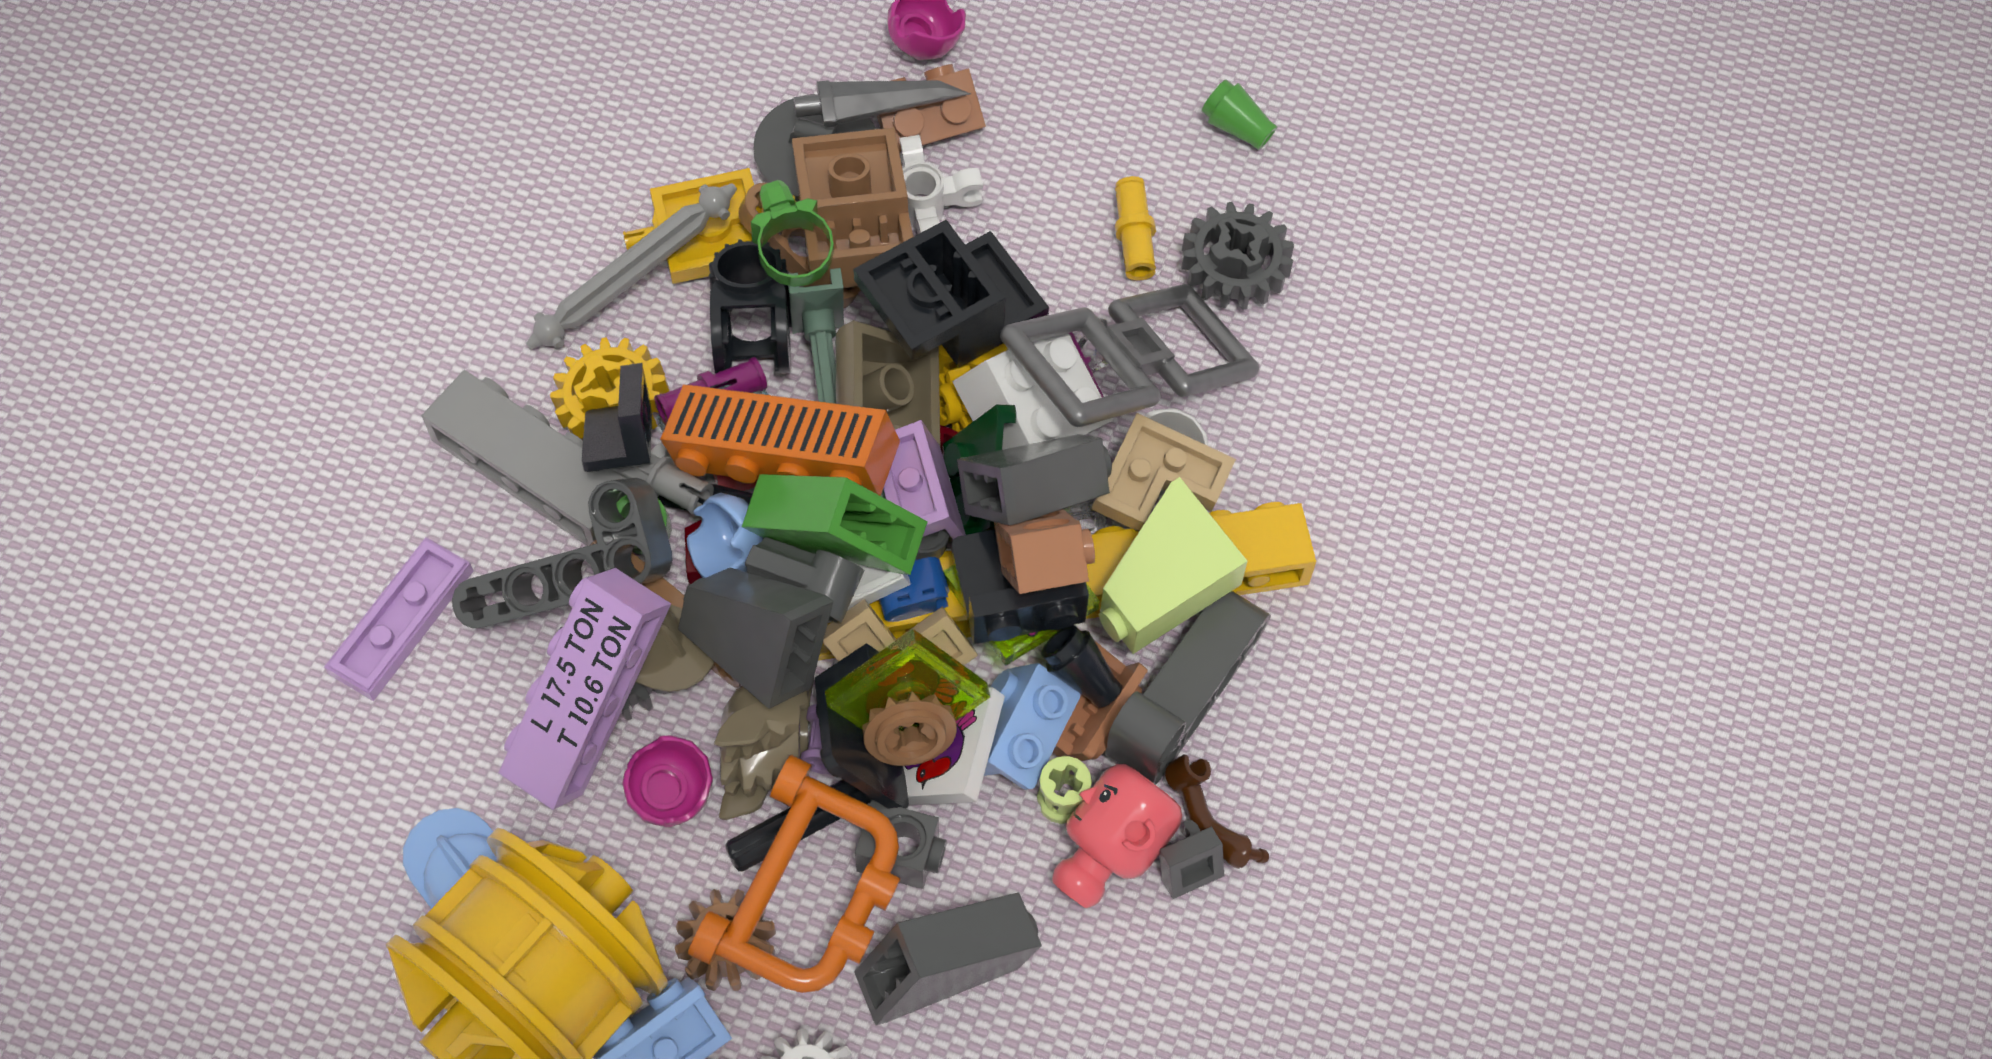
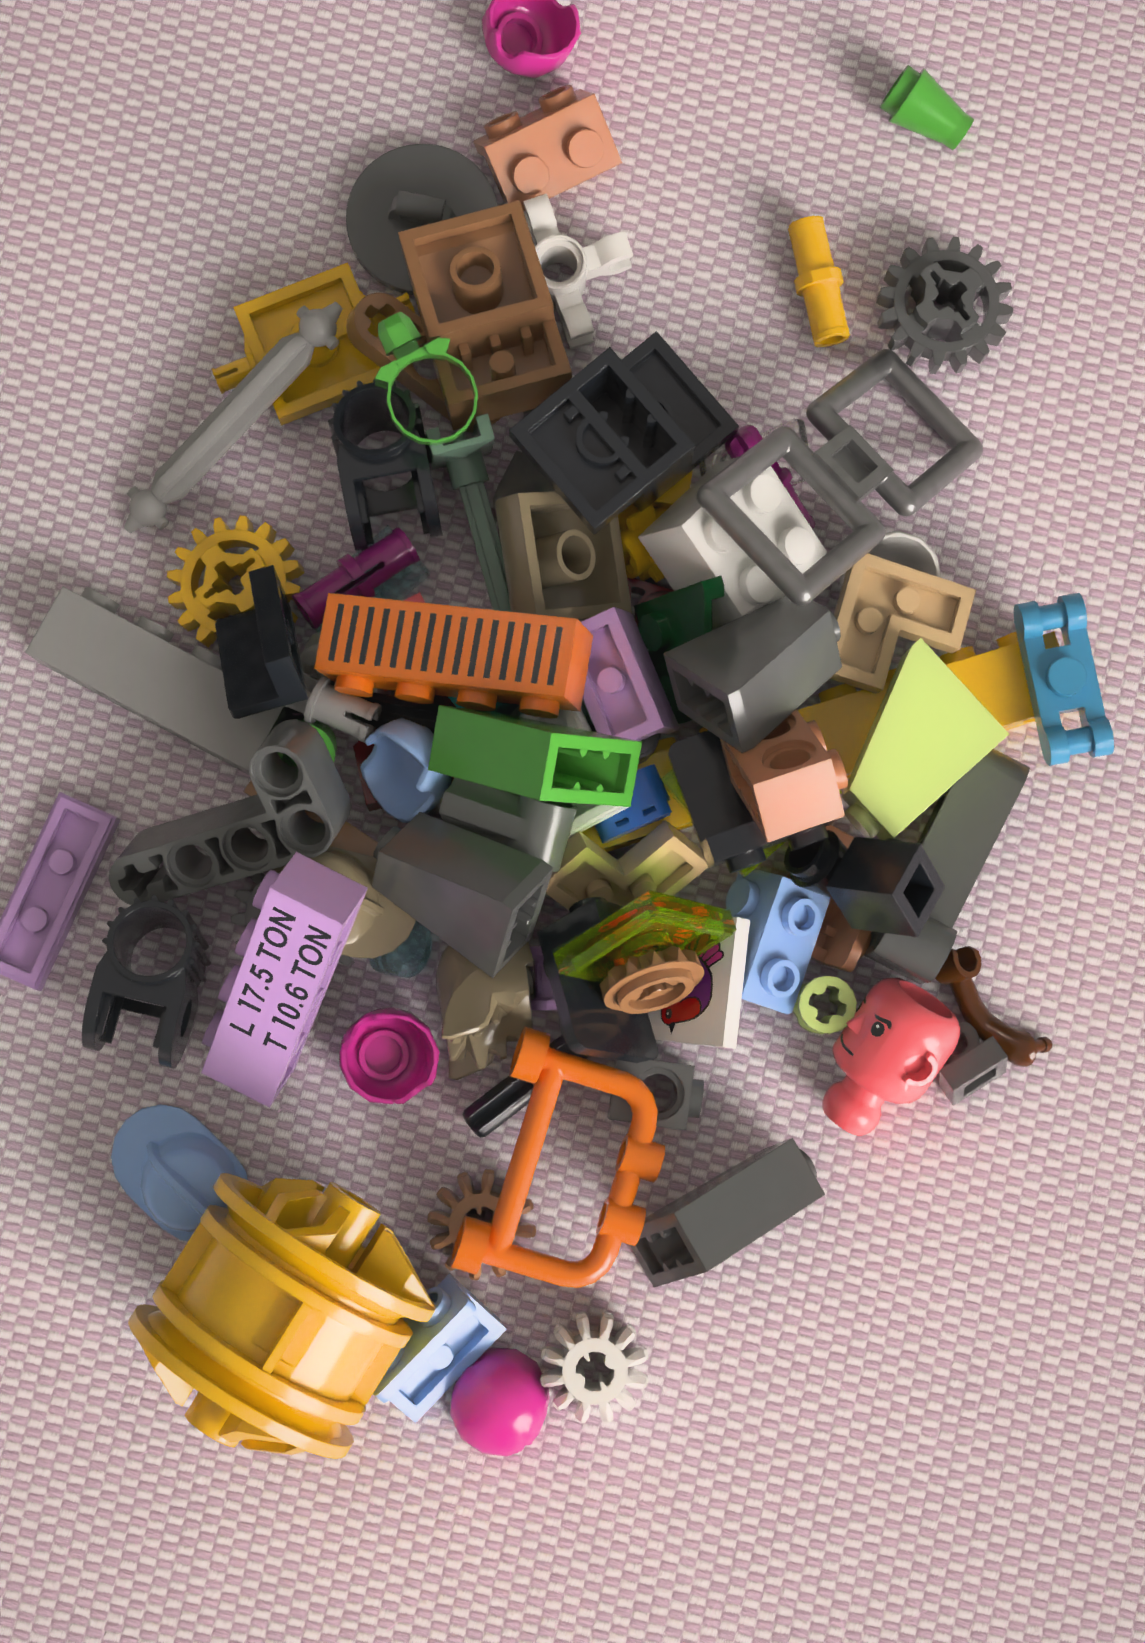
camera: 10 degrees left, 20 degrees up
(458, 664) = (165, 996): none -> black piece
(698, 702) = (409, 957): none -> clear light blue tile
(862, 99) = (466, 159): flat silver bar -> none
(1124, 667) = (886, 886): none -> black brick
(1303, 537) = (1062, 679): none -> dark azure plate

